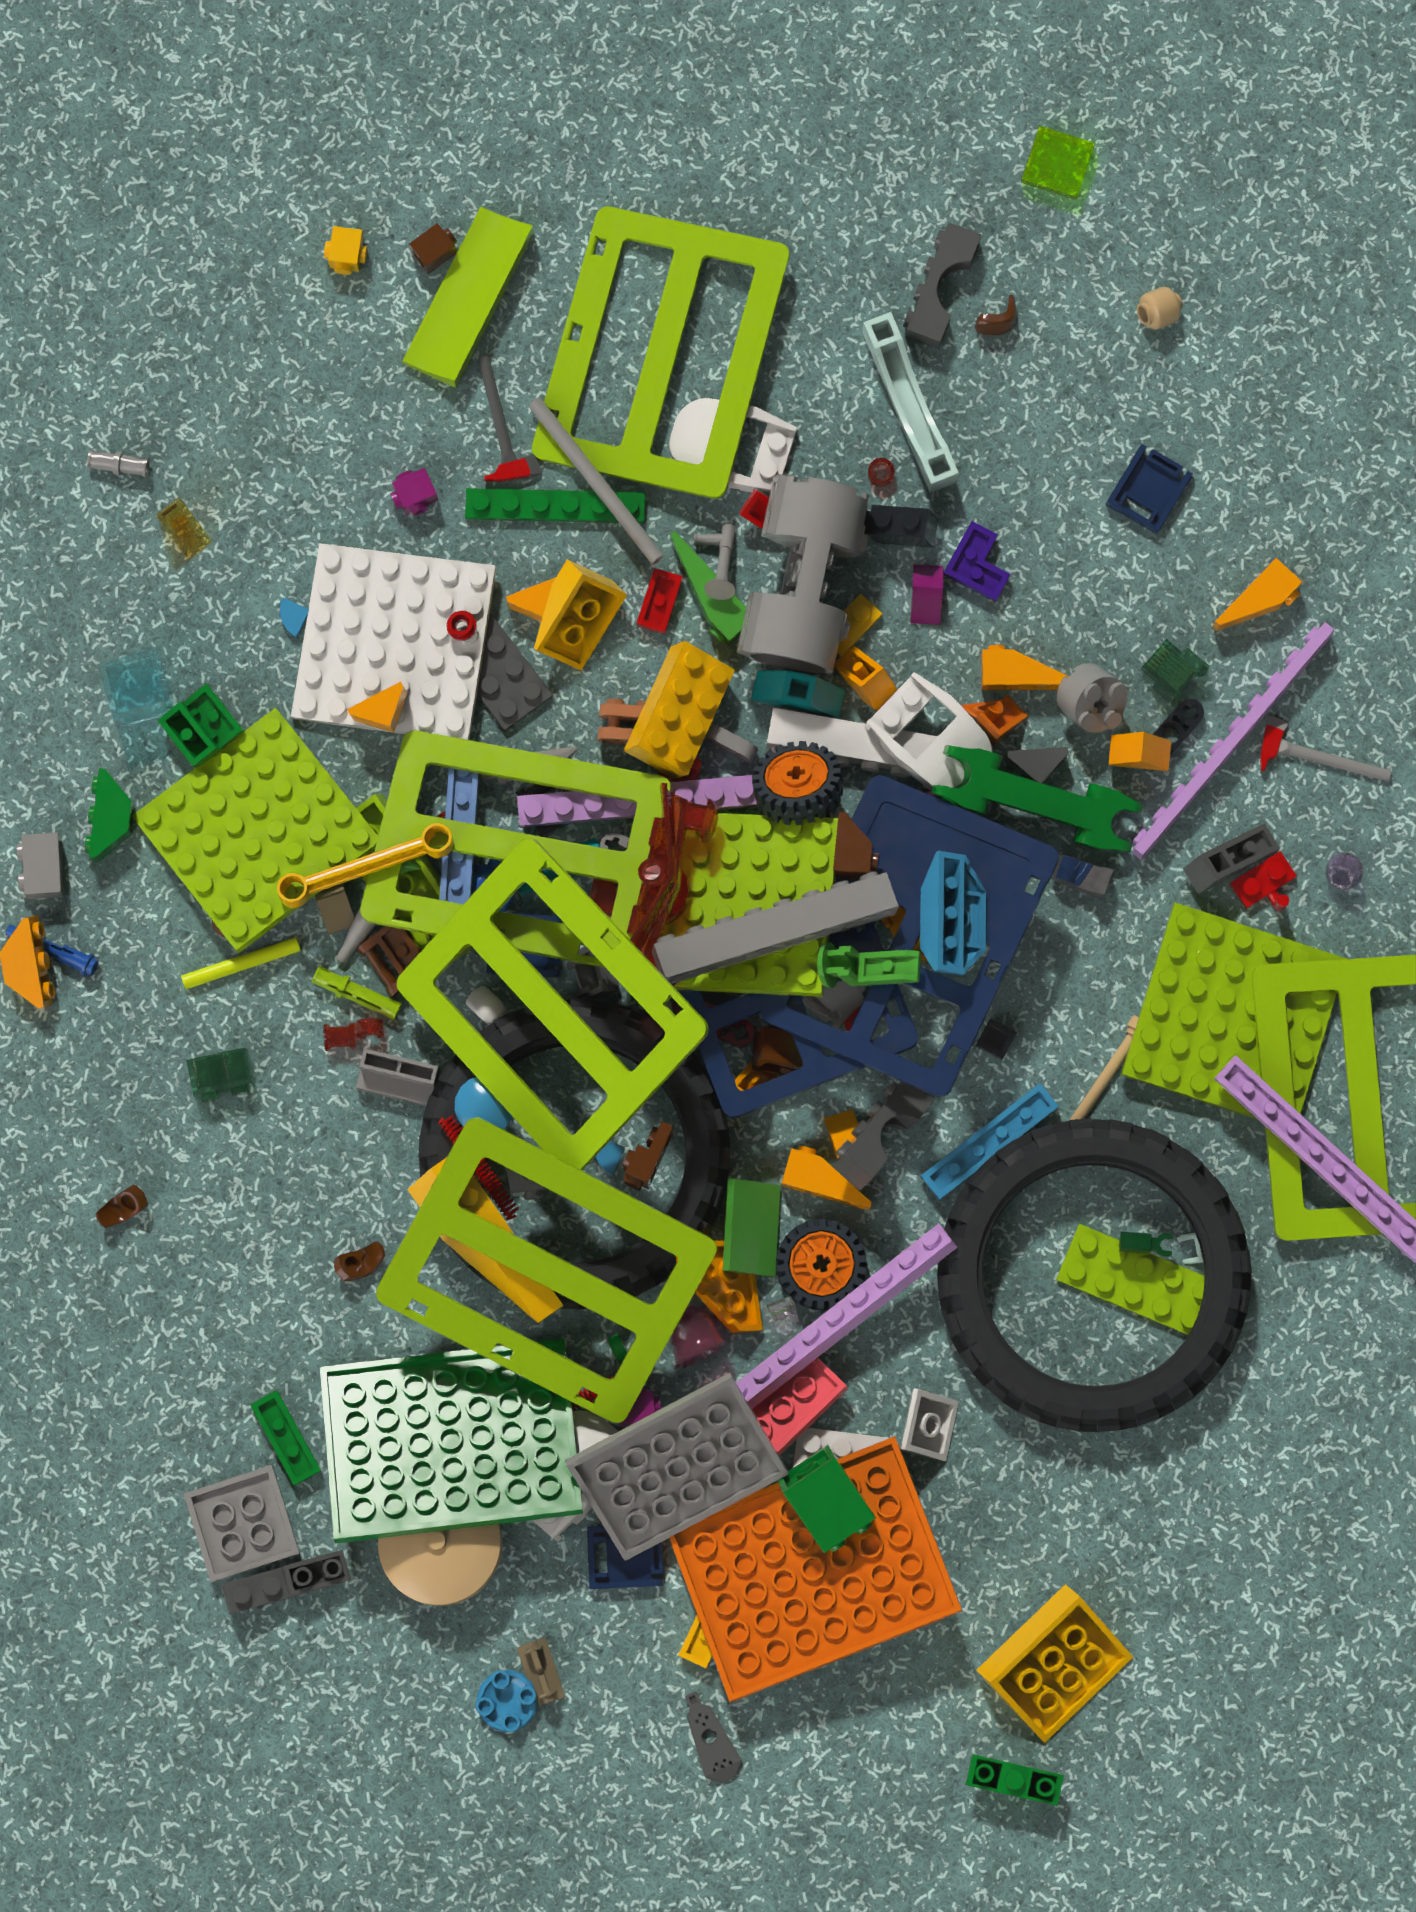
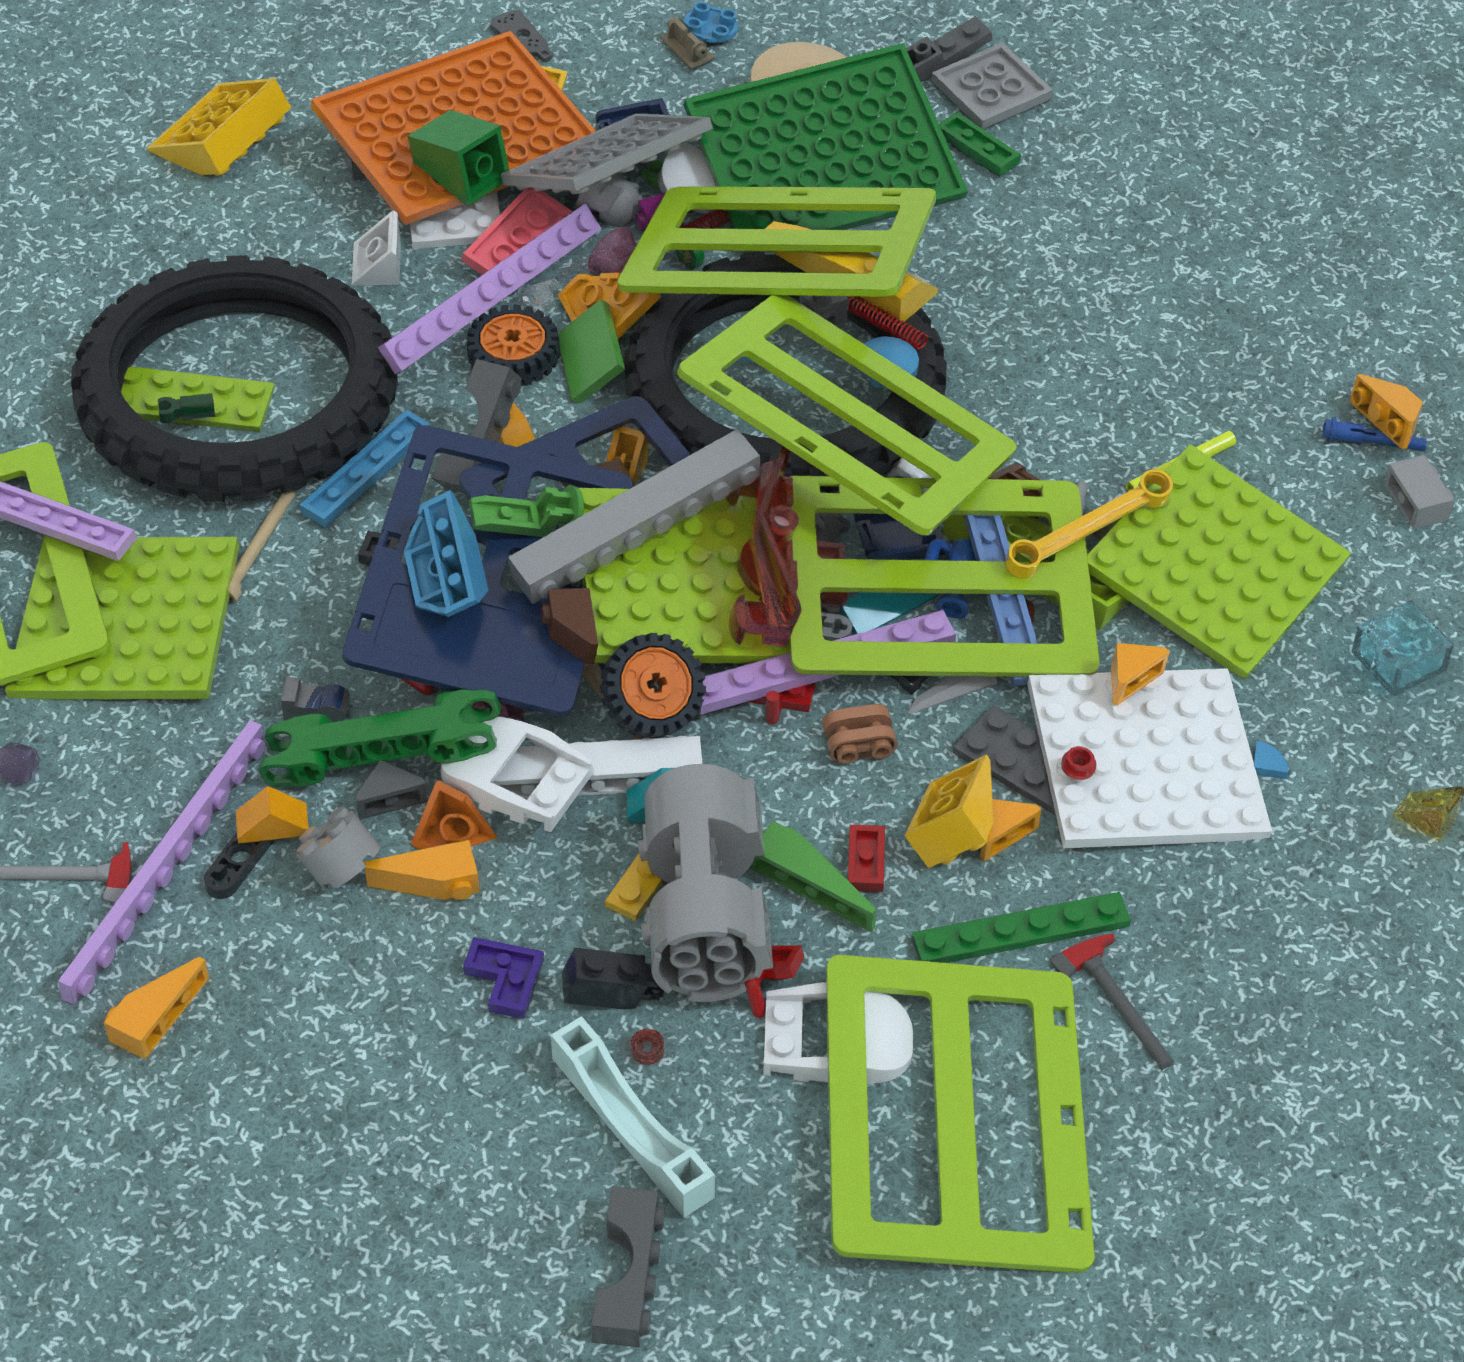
camera: 165 degrees right, 30 degrees down
(109, 817) = (1374, 546): green slope -> none
(122, 1207) = (1209, 262): reddish brown hair -> none
(201, 725) = (1318, 632): green brick -> none
(221, 1074) = (1159, 372): clear green brick -> none
(345, 250) = (1383, 1135): yellow brick -> none
(346, 1035) = (1043, 426): clear red connector -> none
(357, 993) = (1058, 460): lime pin -> none
(359, 1263) = (965, 266): reddish brown hair -> none
(397, 1077) = (991, 401): light grey piece -> none
(413, 492) = (1188, 900): magenta brick -> none
(433, 247) = (1278, 1161): reddish brown brick -> none
(468, 296) = (1213, 1126): lime arch -> none
(596, 481) = (984, 950): light grey piece -> none
(643, 1163) = (710, 318): reddish brown plate -> none
(679, 710) = (806, 740): yellow brick -> none
(719, 587) = (810, 932): light grey piece -> none
(731, 743) = (741, 741): light grey beam -> none
(817, 1177) = (545, 405): light orange slope -> none
(866, 677) = (605, 829): light orange slope -> none
(926, 594) = (557, 934): magenta slope -> none
(997, 323) = (544, 1238): reddish brown hair -> none
(1014, 1780) = (239, 44): green slope -> none
(1151, 485) = (311, 1110): dark blue container -> none
(1159, 308) = (338, 1304): tan head -> none
(1173, 670) = (245, 914): clear green piece -> none
(1230, 858) = (150, 748): dark grey slope -> none
(1264, 881) = (106, 745): red plate -> none

